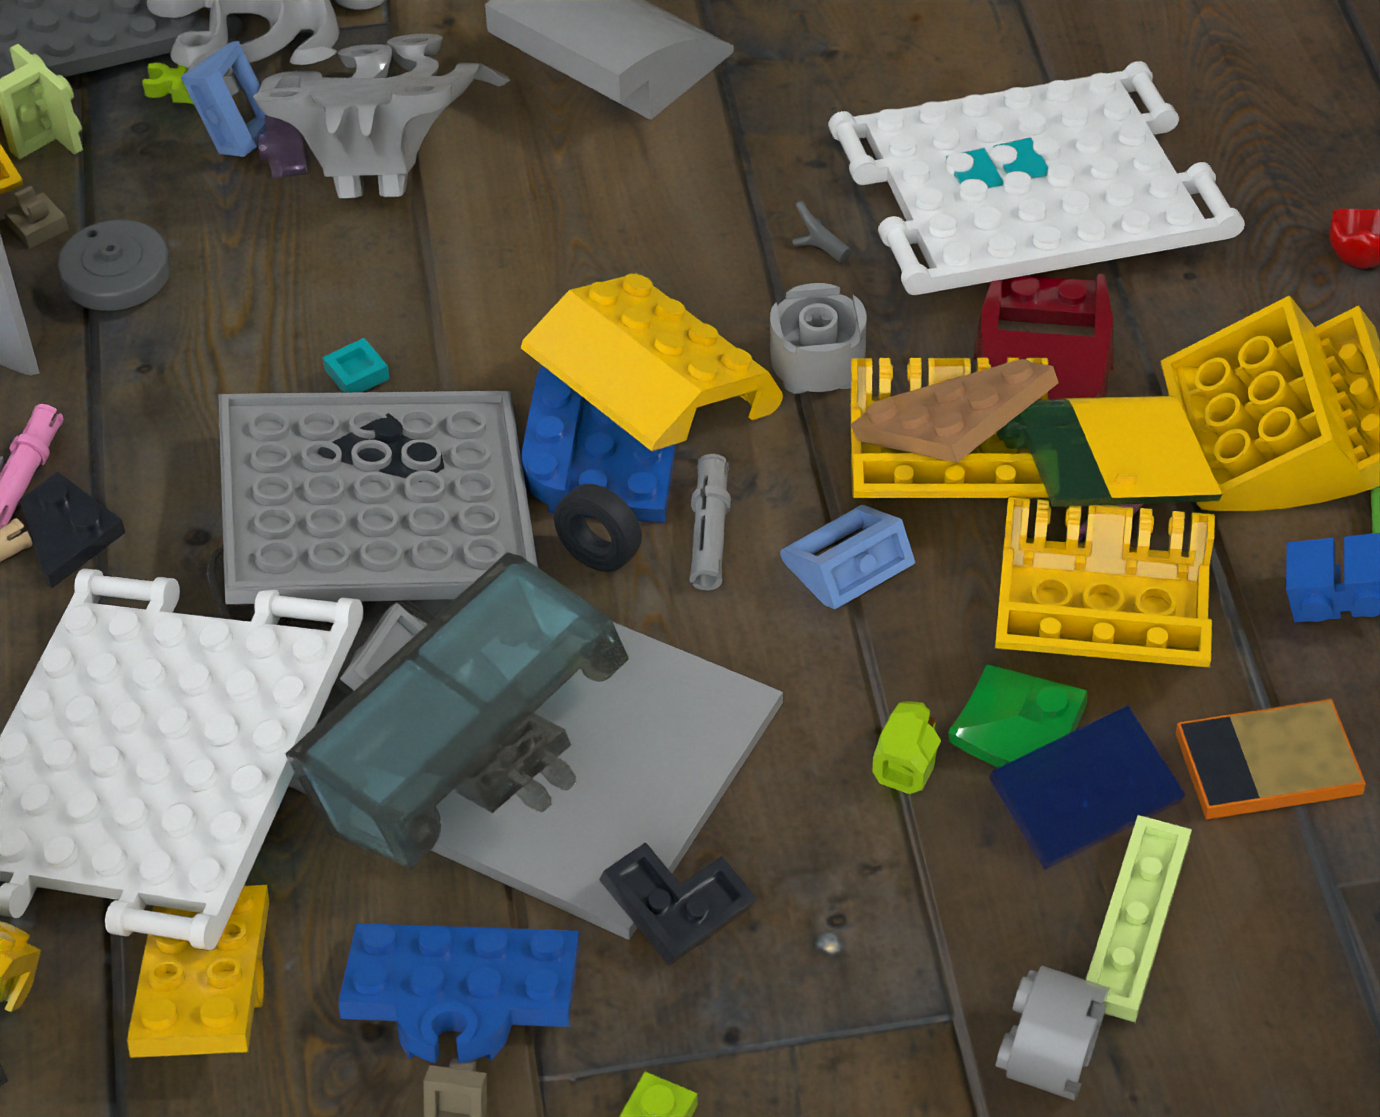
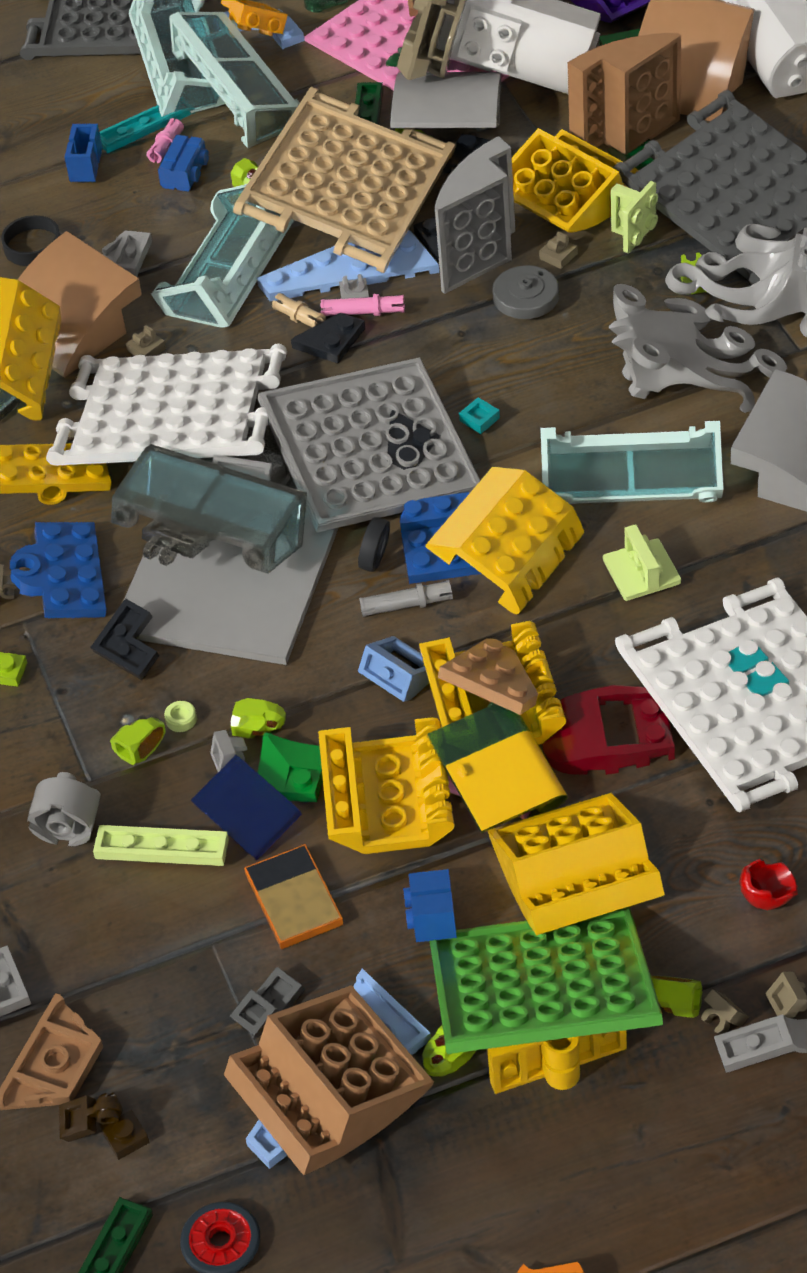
camera: 80 degrees right, 0 degrees up
(216, 104) = (656, 278): medium blue tile -> none
(553, 210) = (634, 465): none -> windscreen
(752, 248) = (641, 566): none -> yellowish green bracket
(816, 337) = (561, 610): light grey brick -> none
(820, 236) = (670, 599): dark grey bar -> none
(854, 859) = (180, 716): none -> yellowish green tile
(901, 916) = (138, 740): none -> lime rock
(967, 797) = (225, 748): none -> light grey tile

